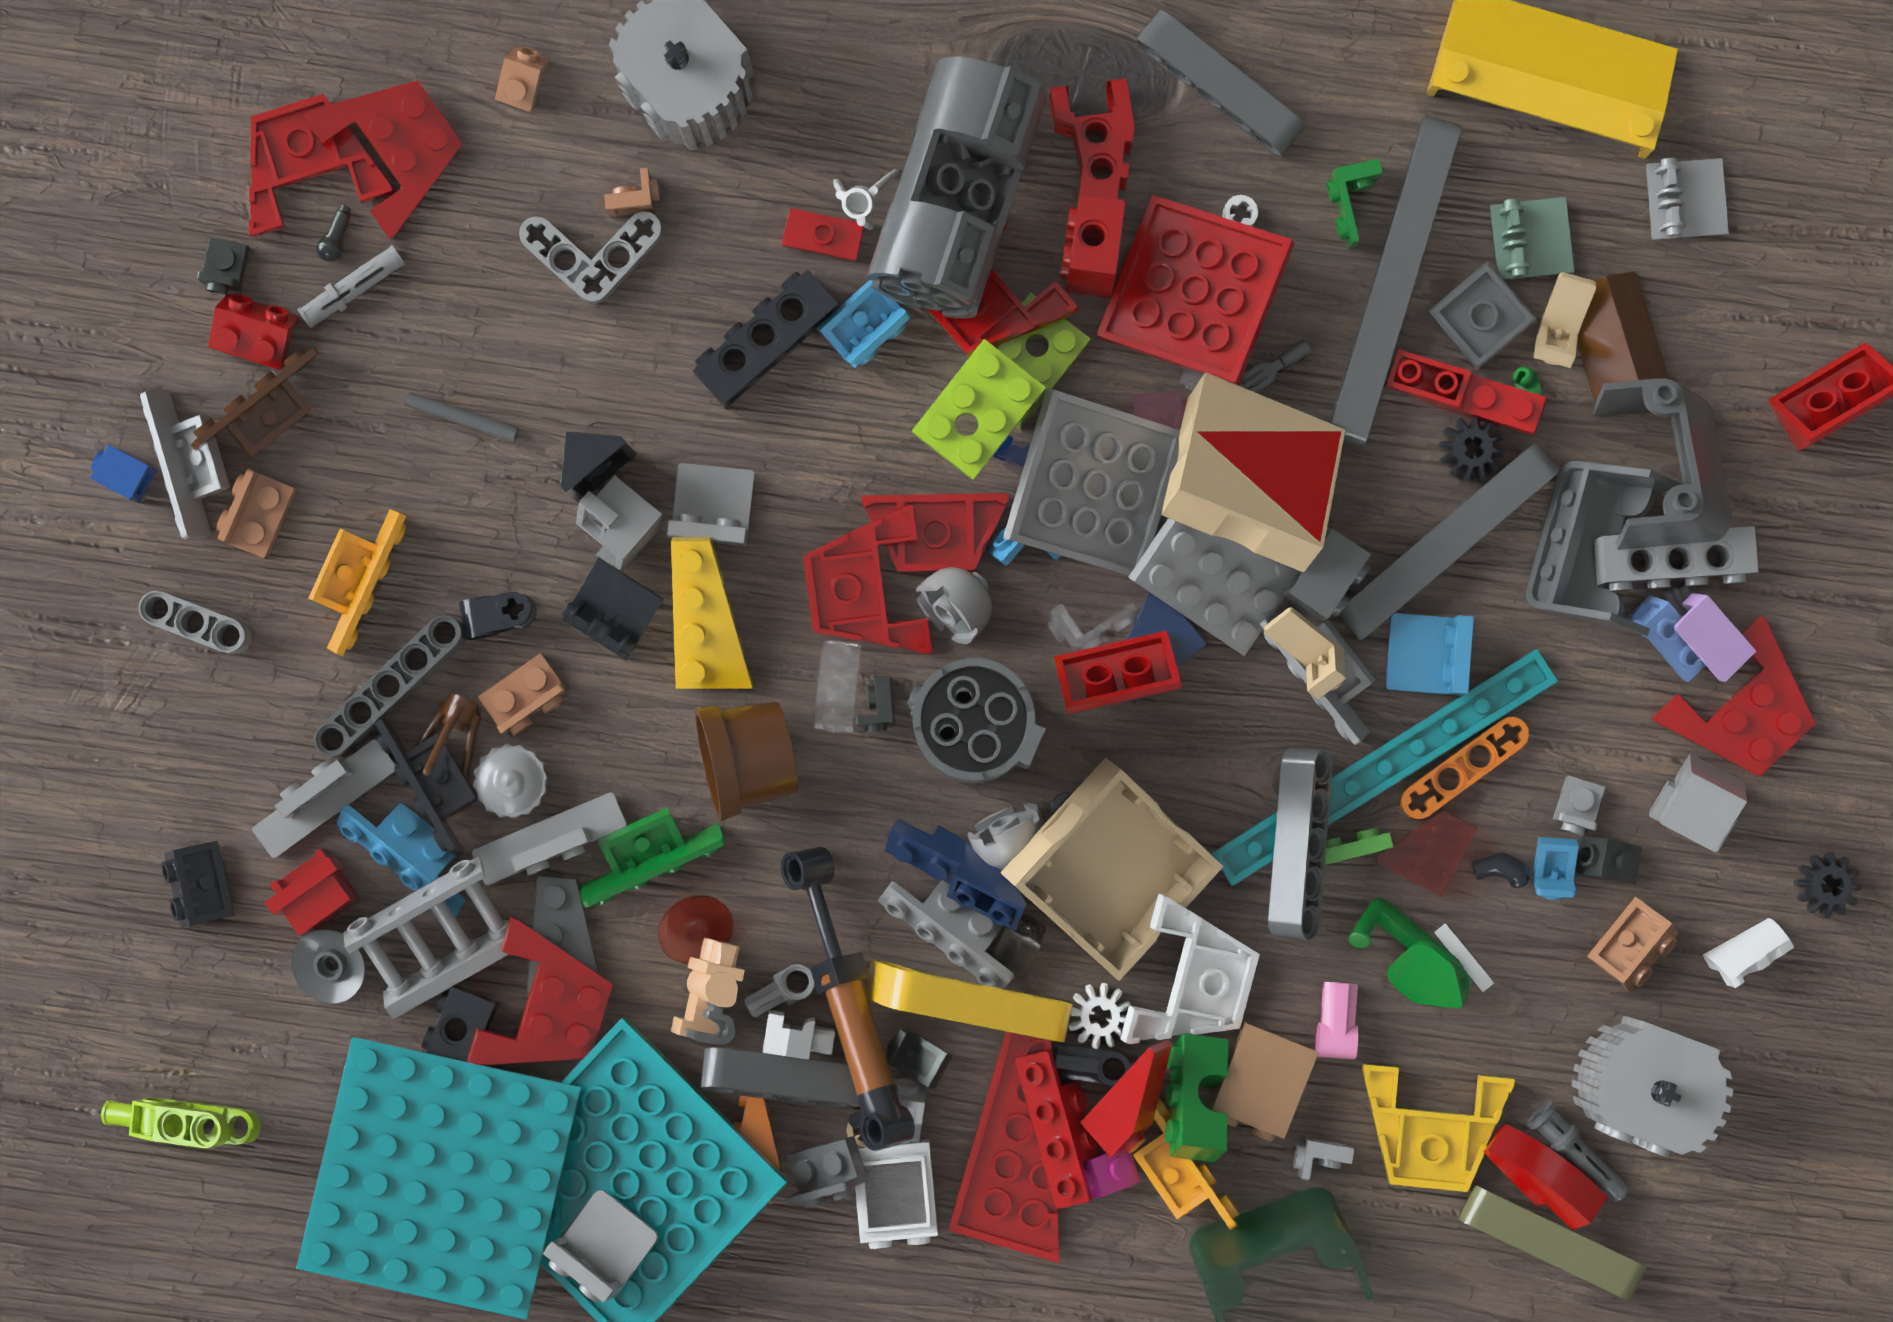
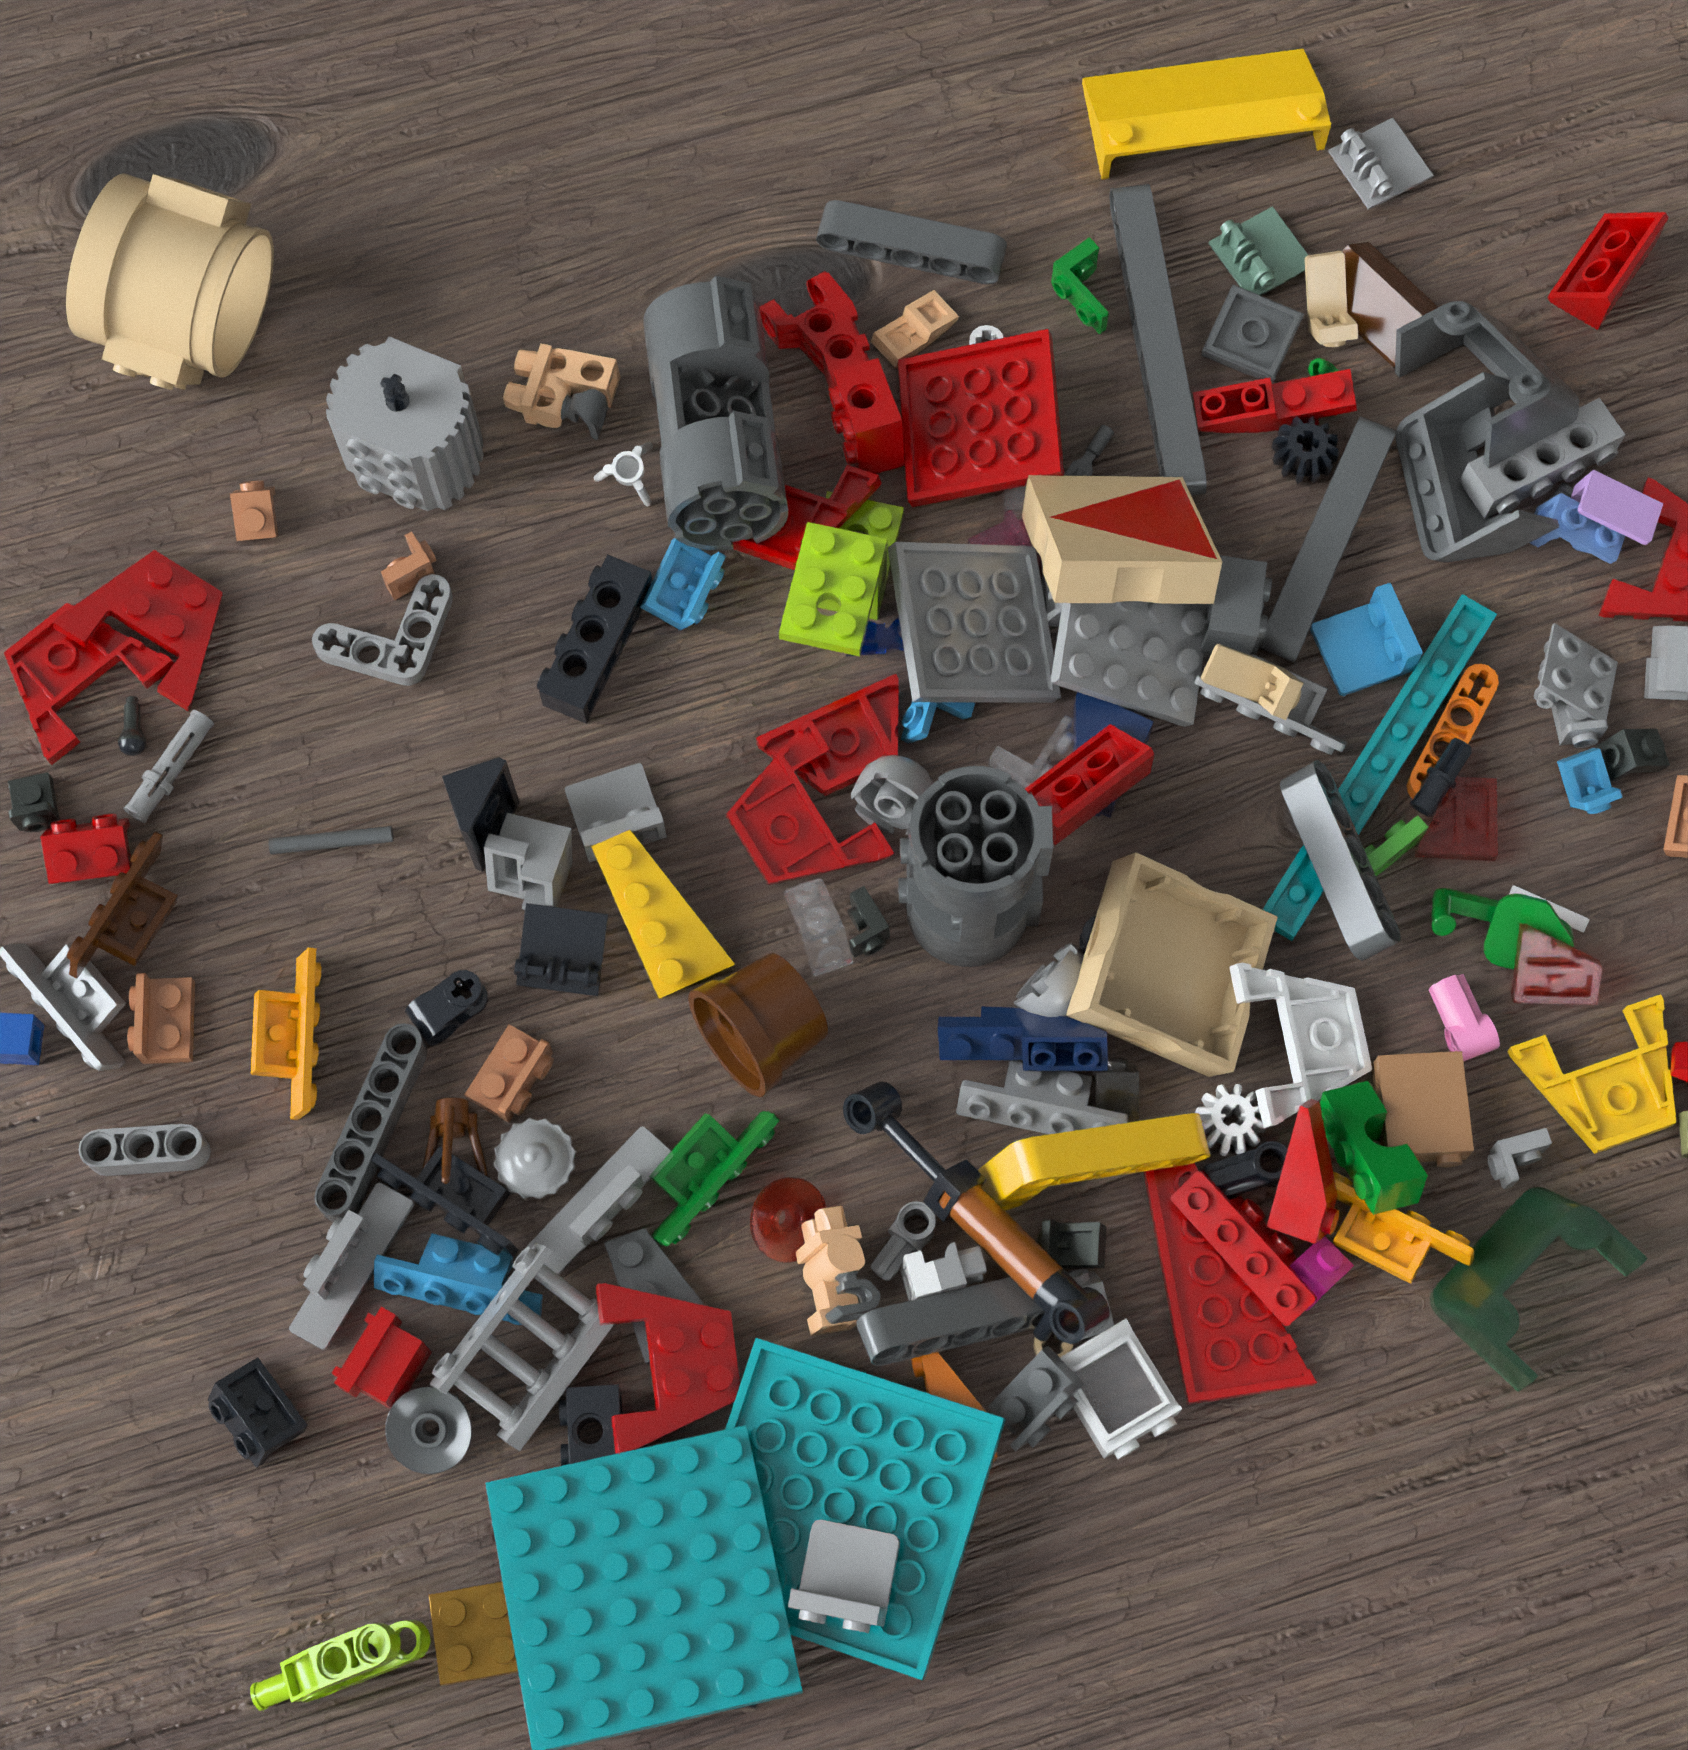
camera: 30 degrees left, 15 degrees down
(294, 1141) = (472, 1634): none -> pearl gold plate
(822, 235) = (606, 527): red plate -> none
(836, 74) = (553, 378): none -> light nougat hips
(1183, 168) = (916, 329): none -> light nougat slope
(1428, 808) = (1441, 777): none -> black axle
(1434, 1018) = (1553, 971): none -> clear red wing
(1505, 865) = (1539, 803): black arm -> none
(1596, 769) = (1575, 675): none -> light grey hinge

